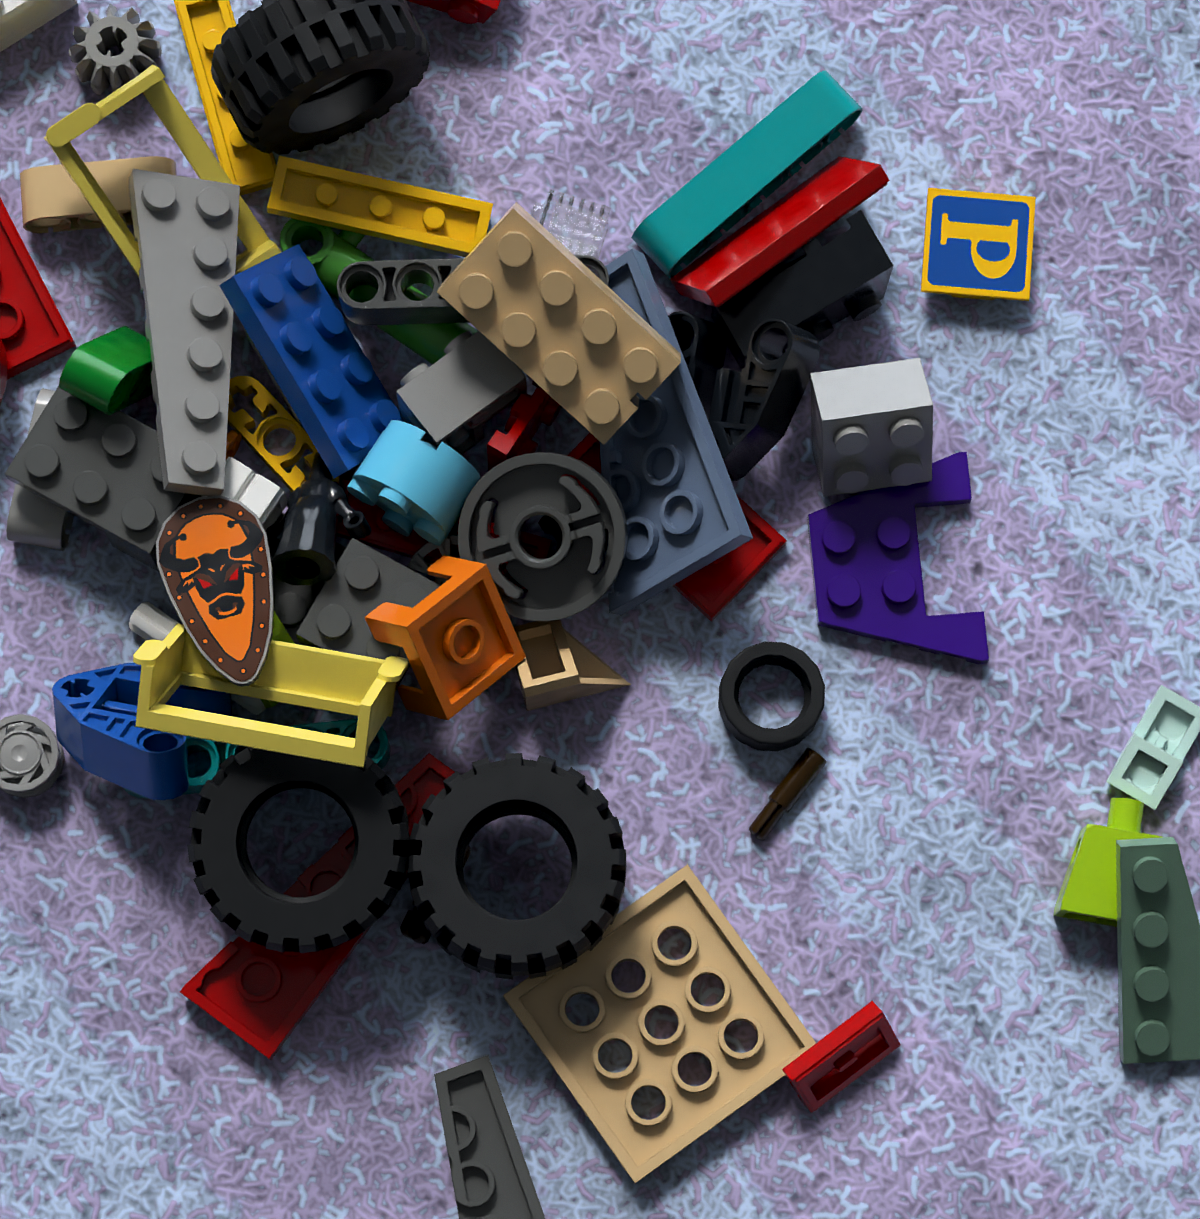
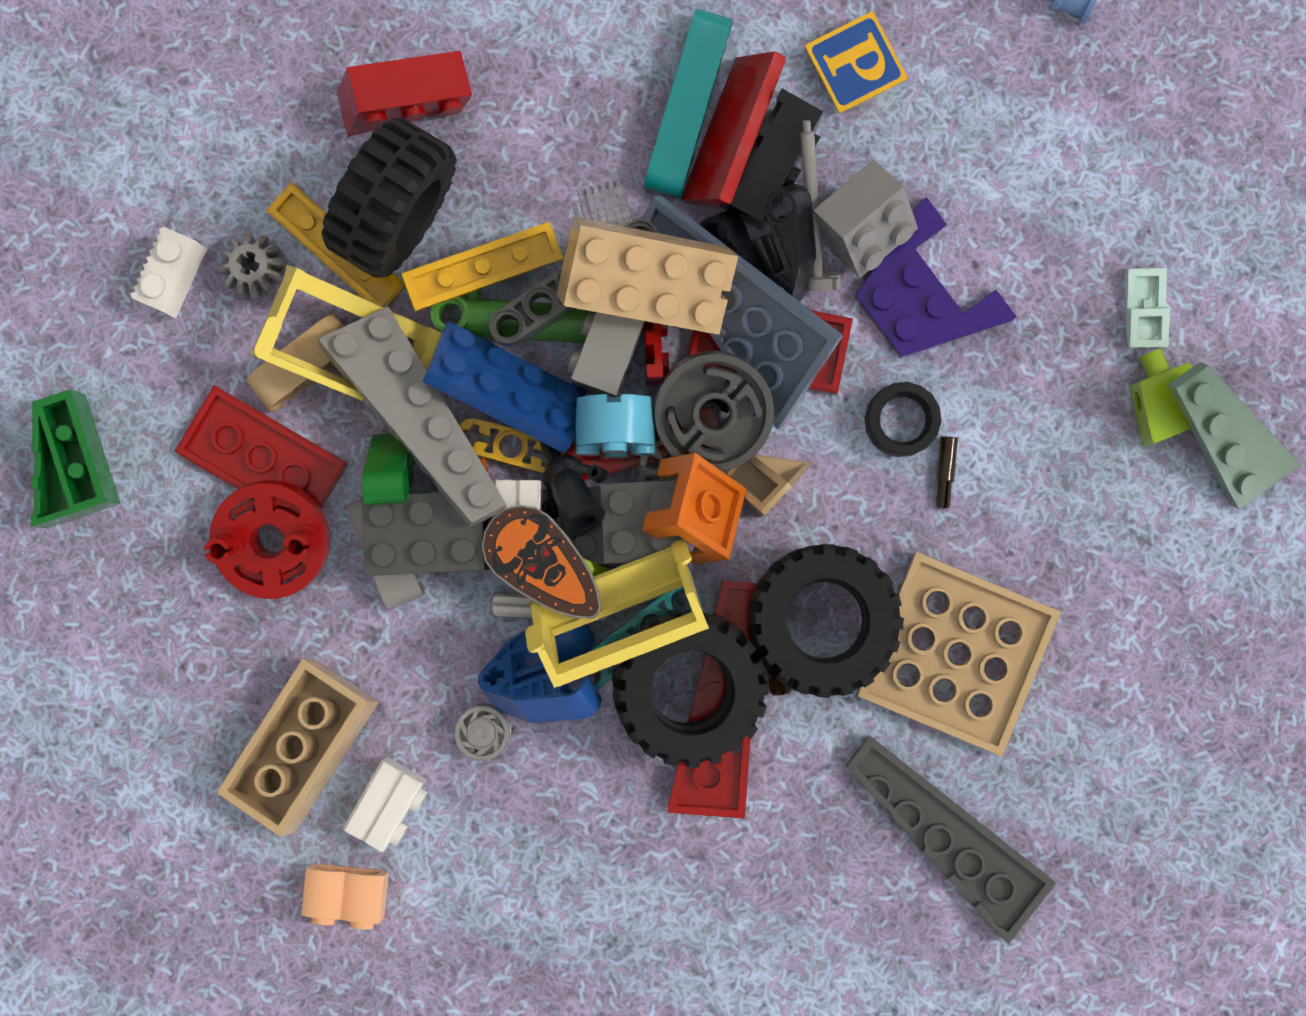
camera: 30 degrees left, 10 degrees up
(772, 467) = (819, 279): none -> light grey piece
(841, 1056) = (1075, 608): red tile -> none

